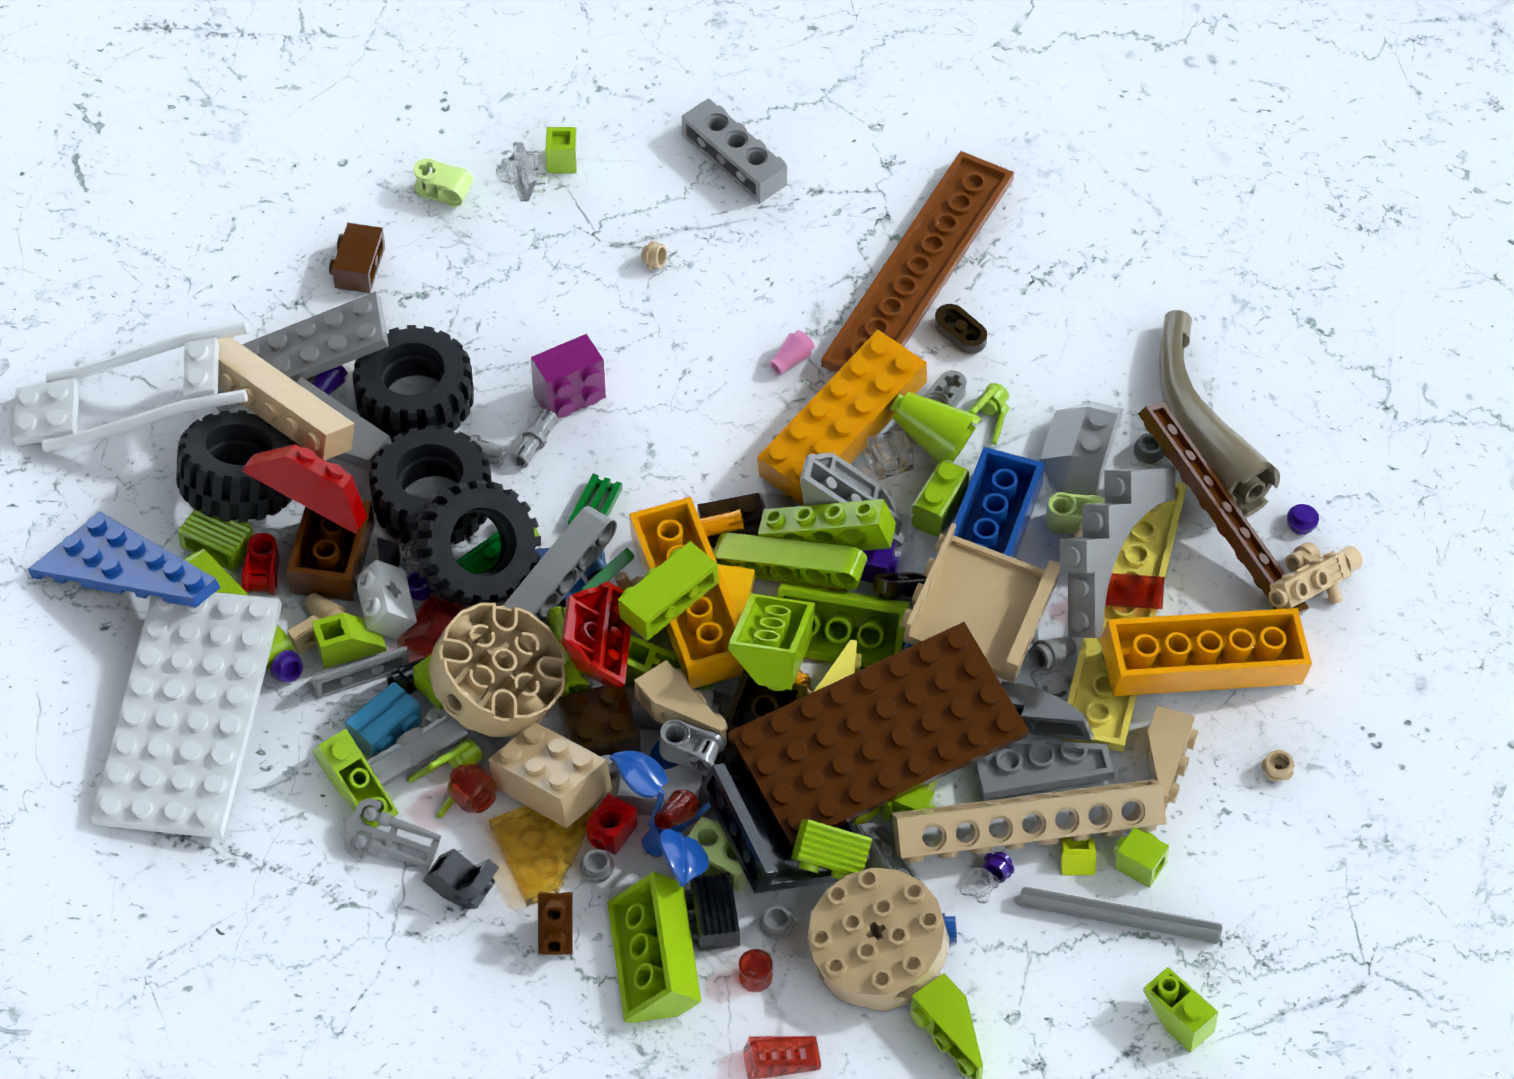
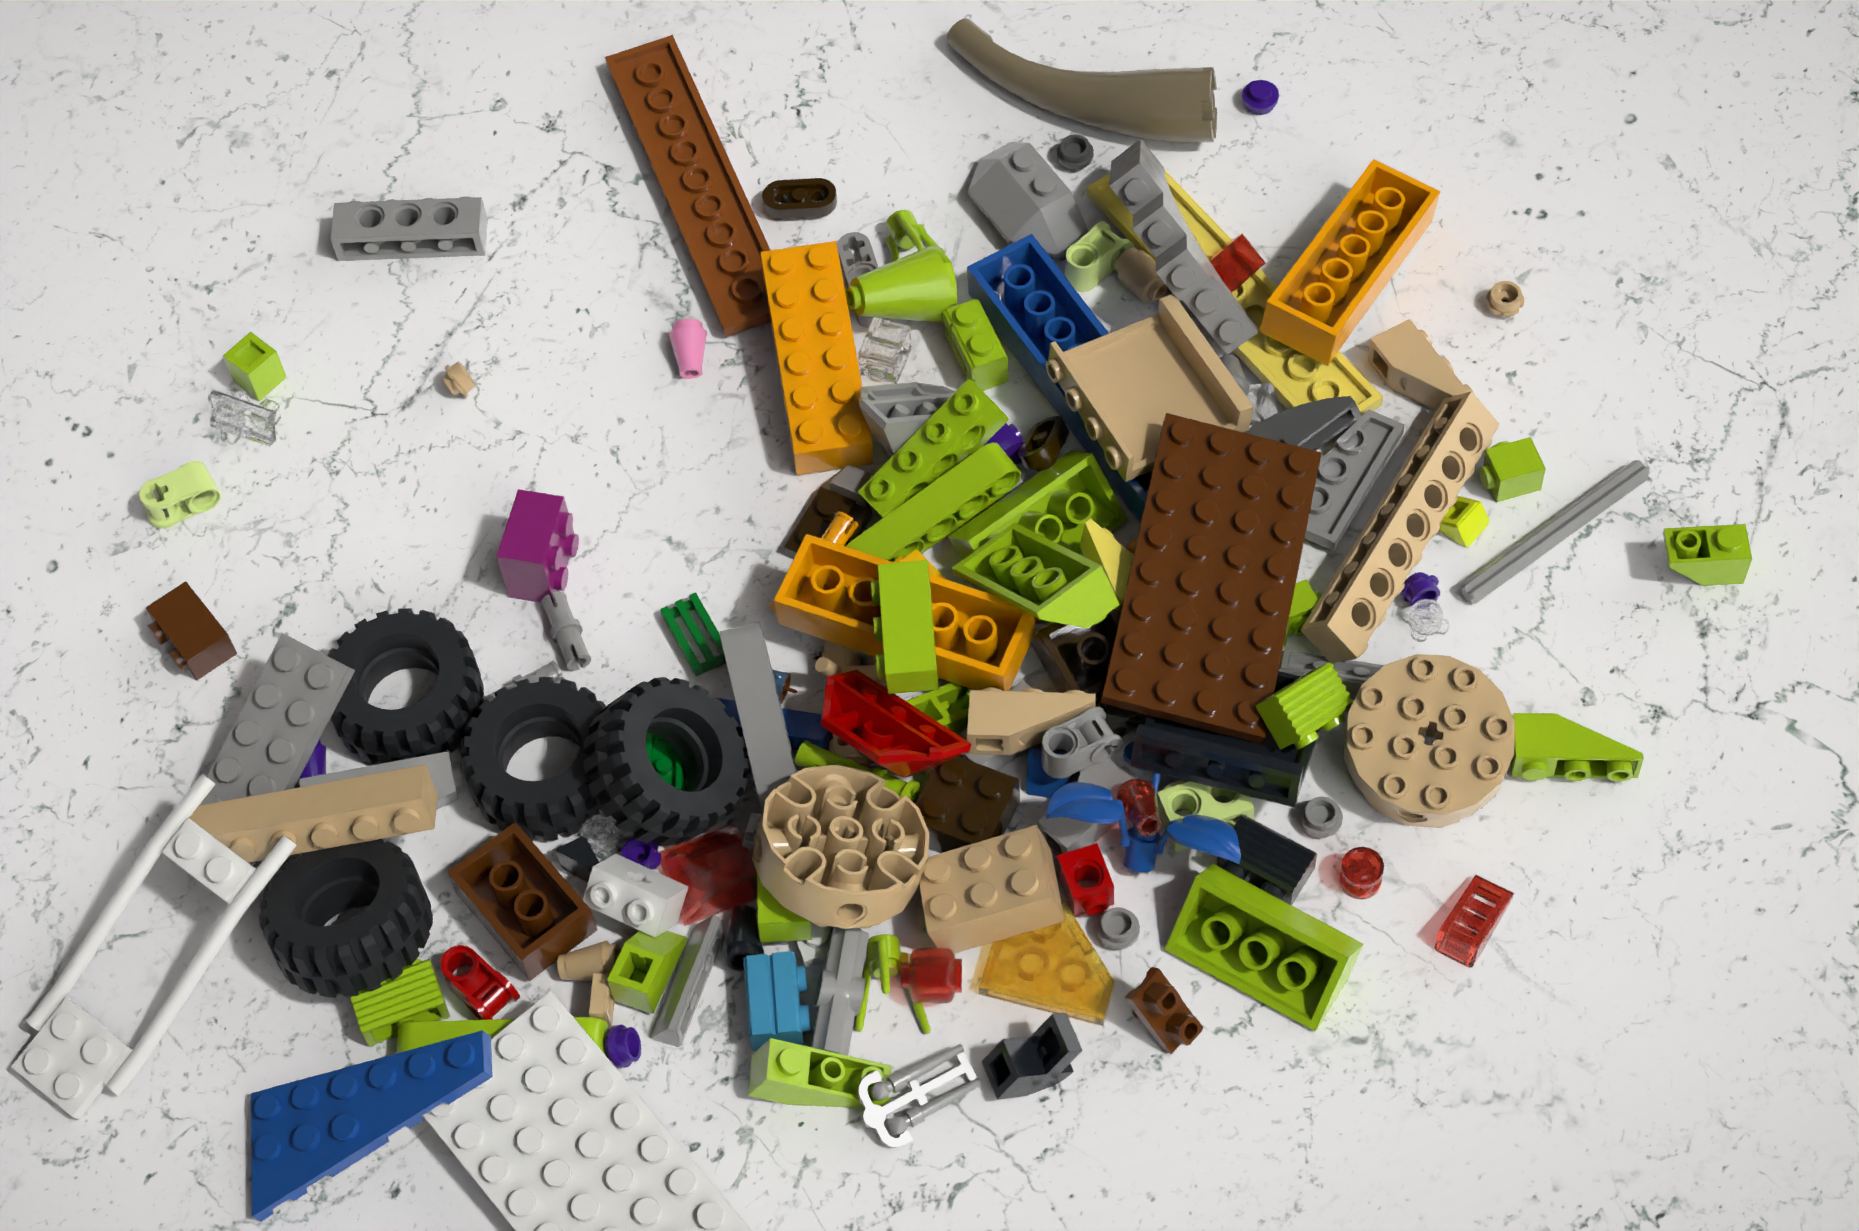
camera: 45 degrees left, 5 degrees up
(310, 482) = (455, 856): red wedge -> none
(610, 569) = (802, 679): green tile -> none
(1213, 497) = (1203, 136): reddish brown plate -> none
(1313, 575) = (1340, 122): tan piece -> none

